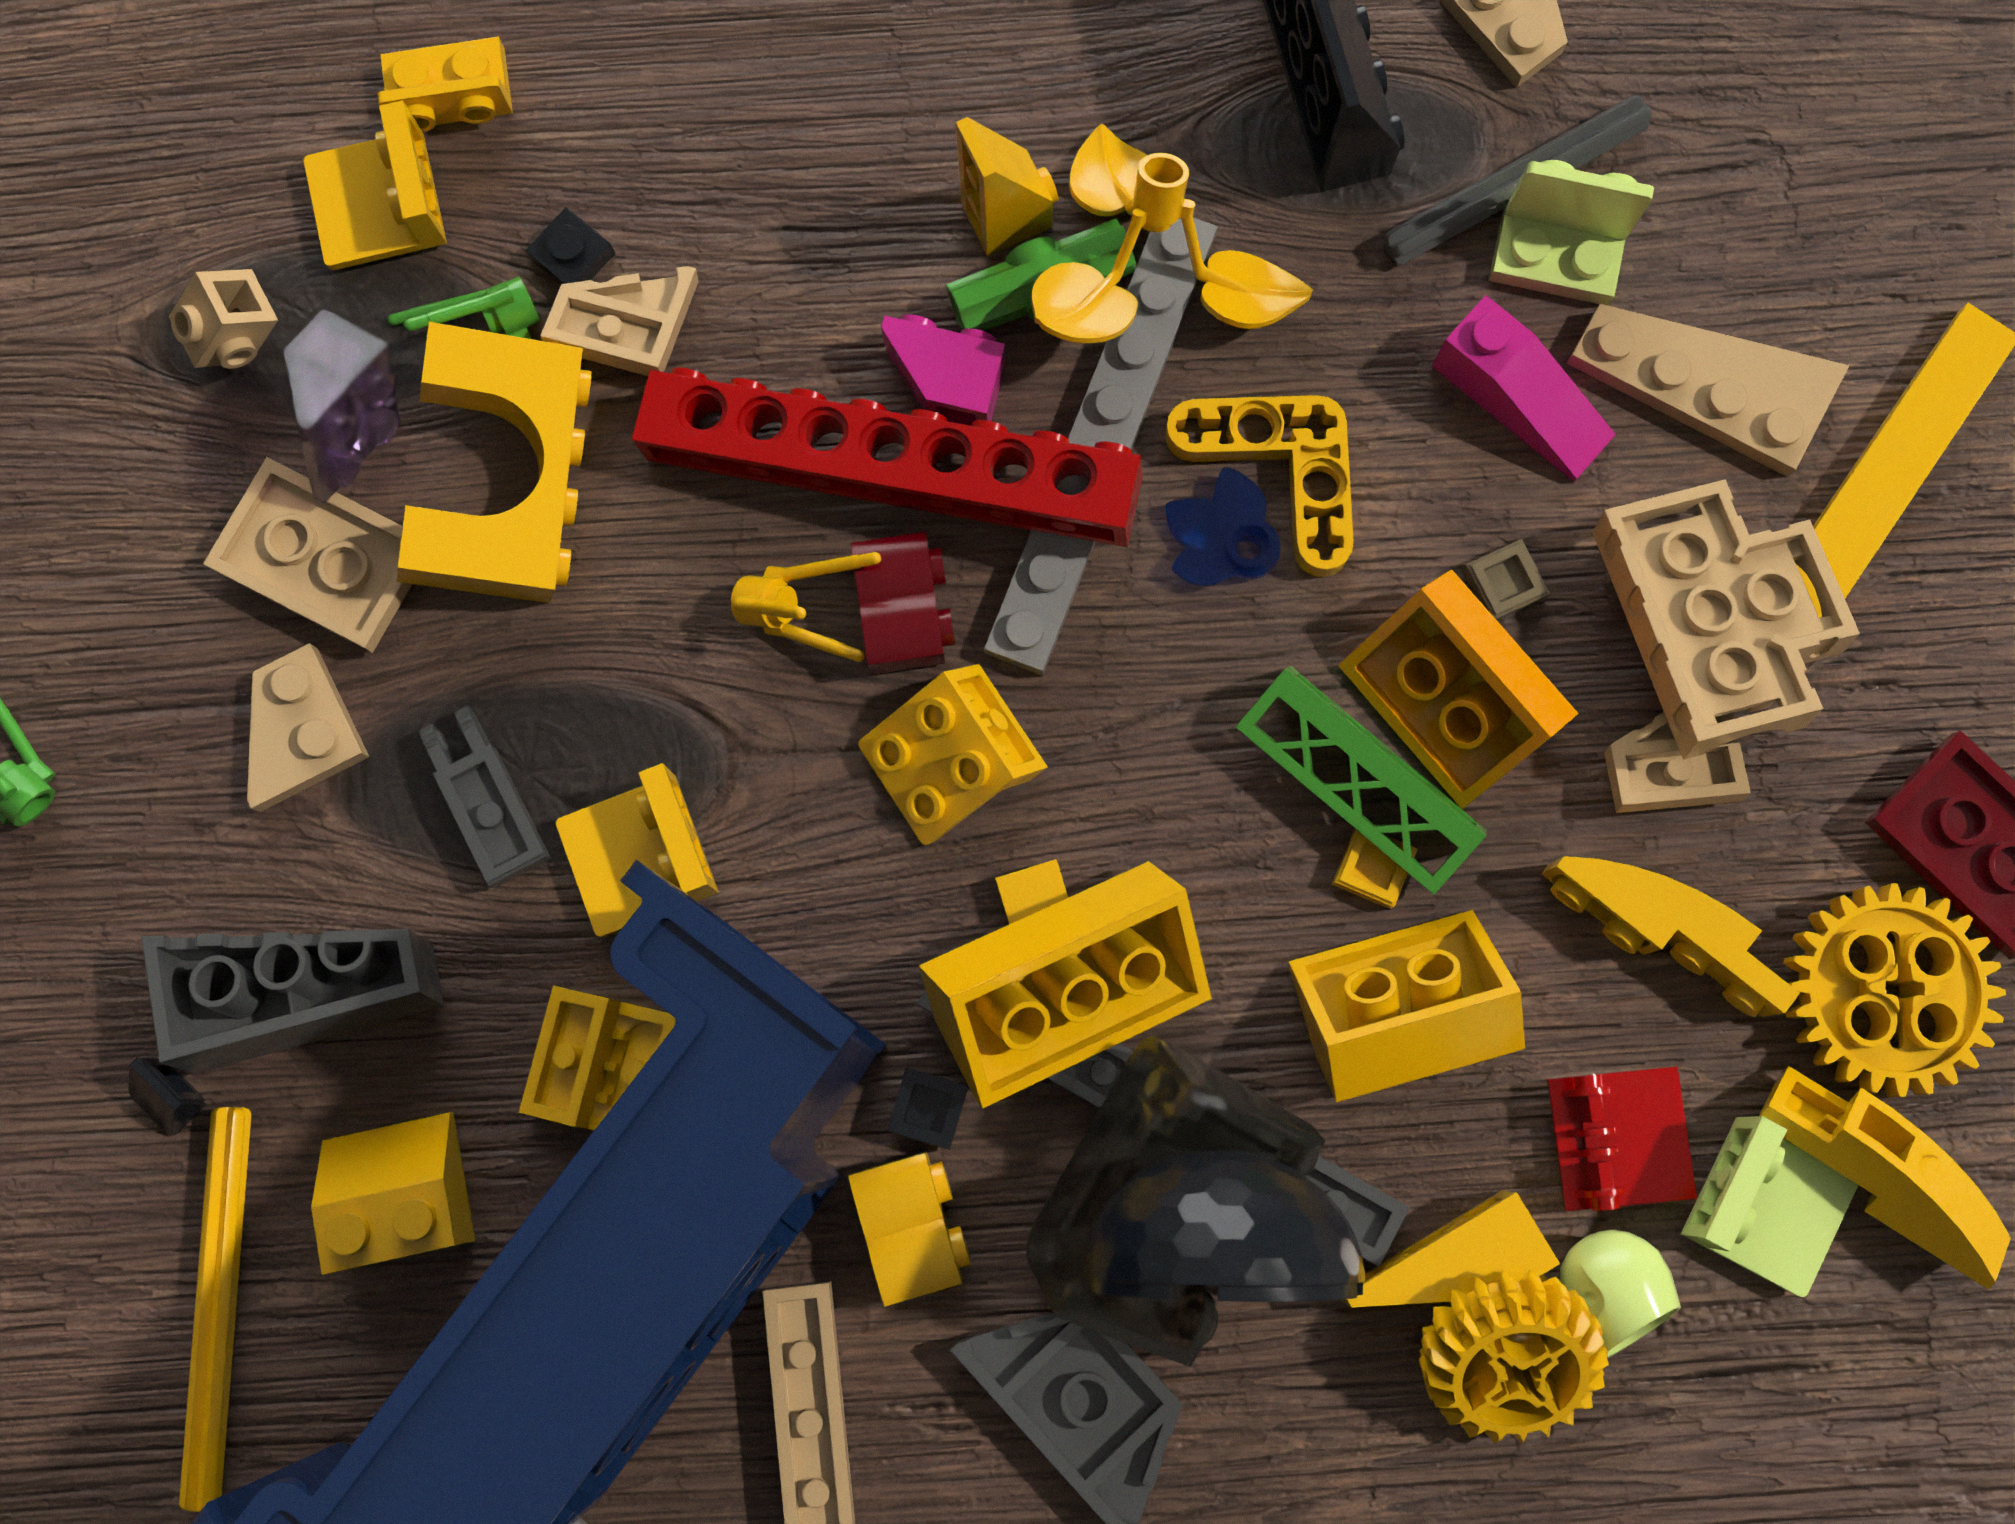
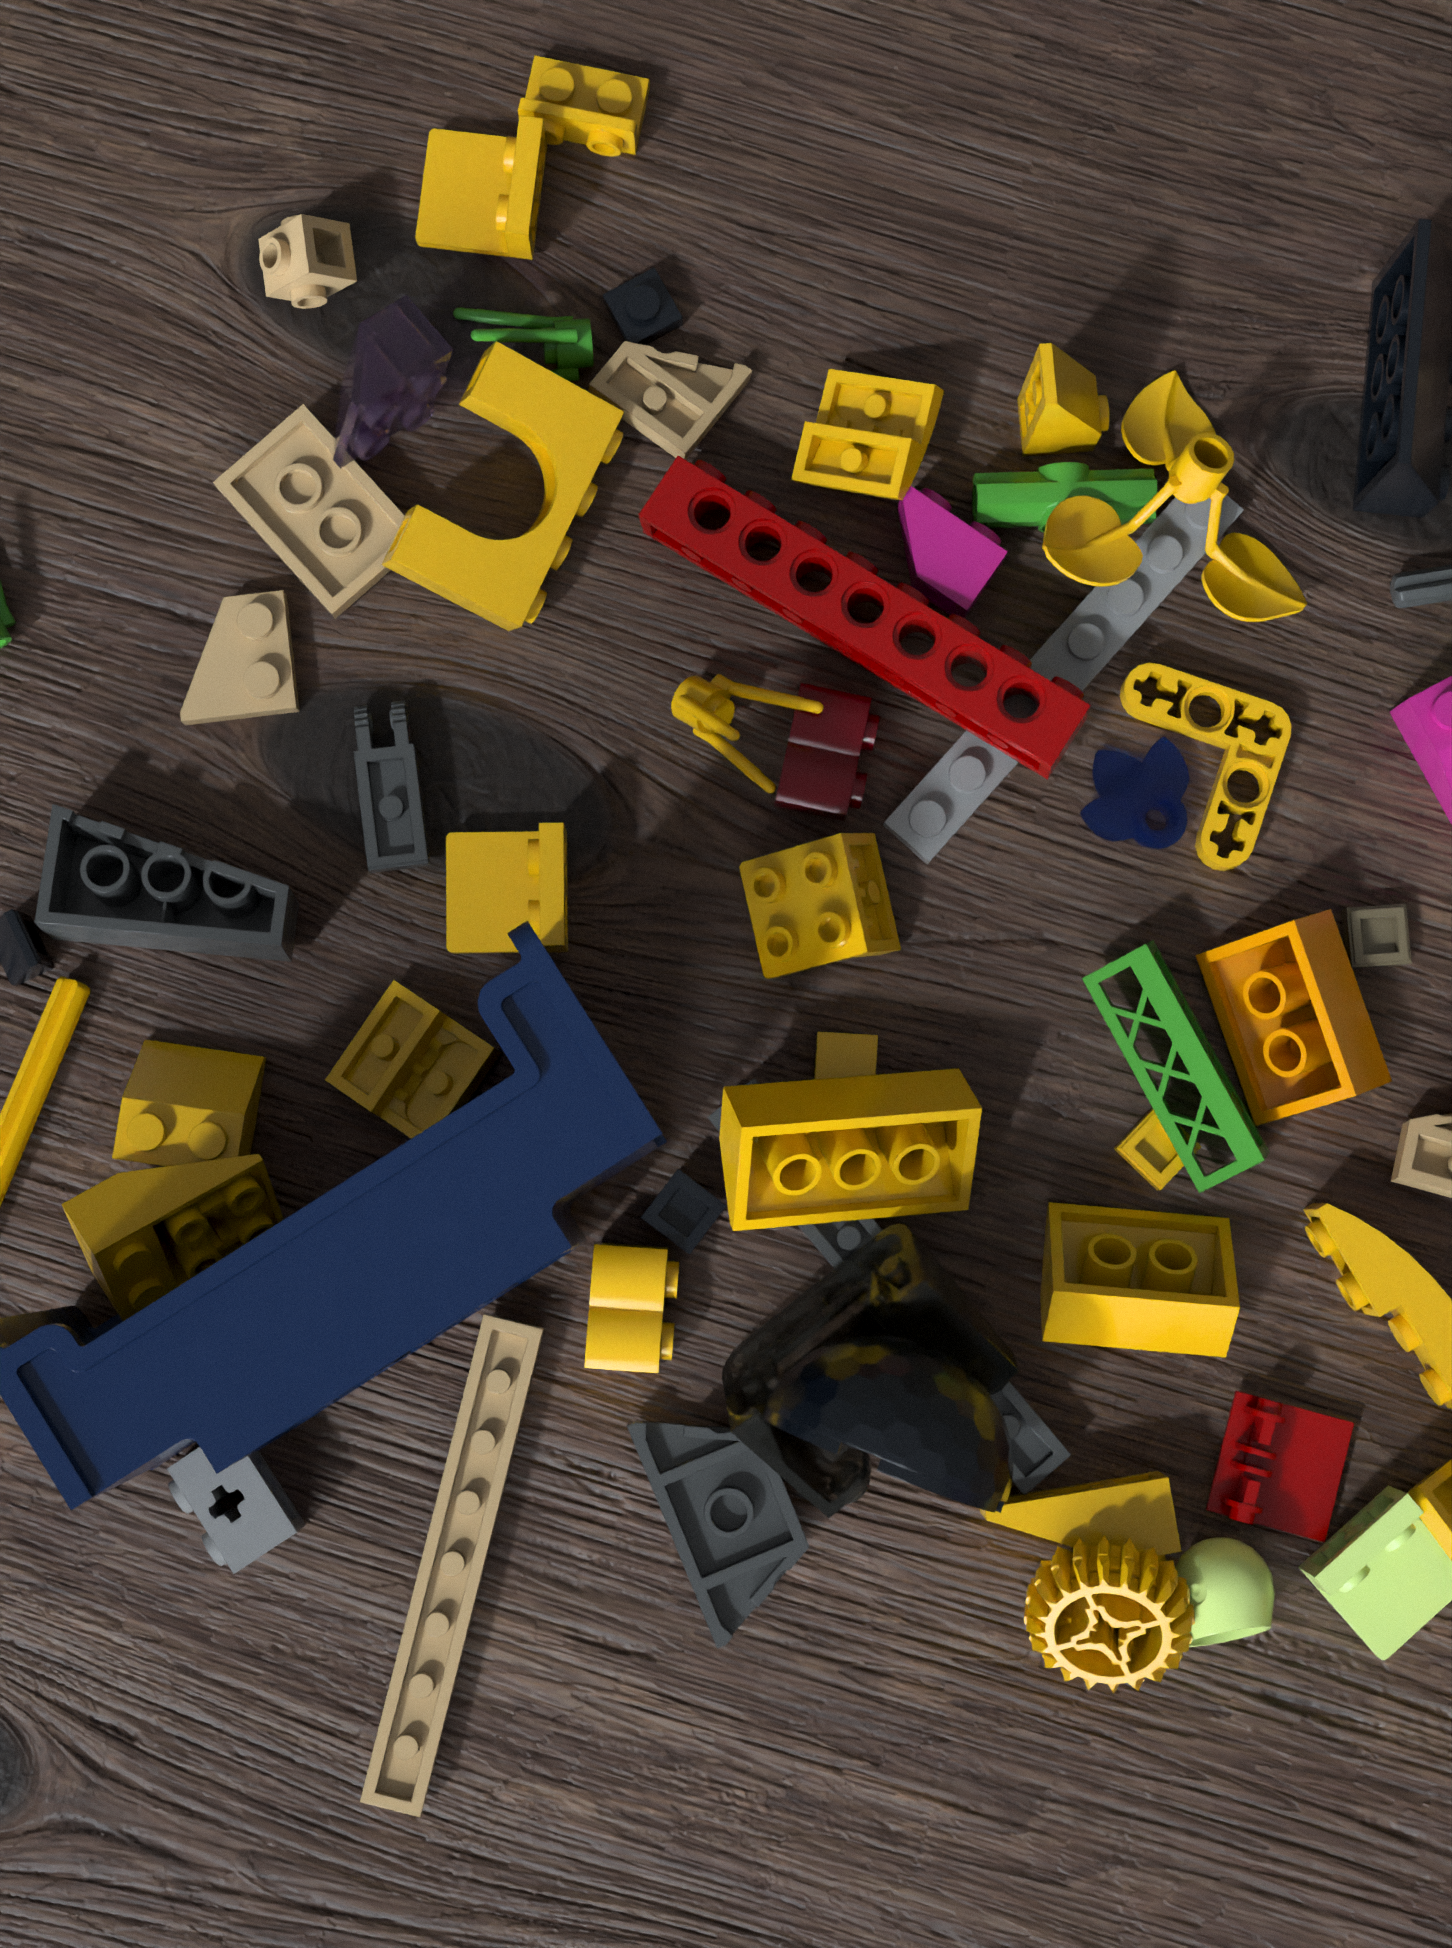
camera: 10 degrees right, 5 degrees up
(384, 1317) = (168, 1224): none -> yellow slope
(829, 284) = (868, 434): none -> yellow slope

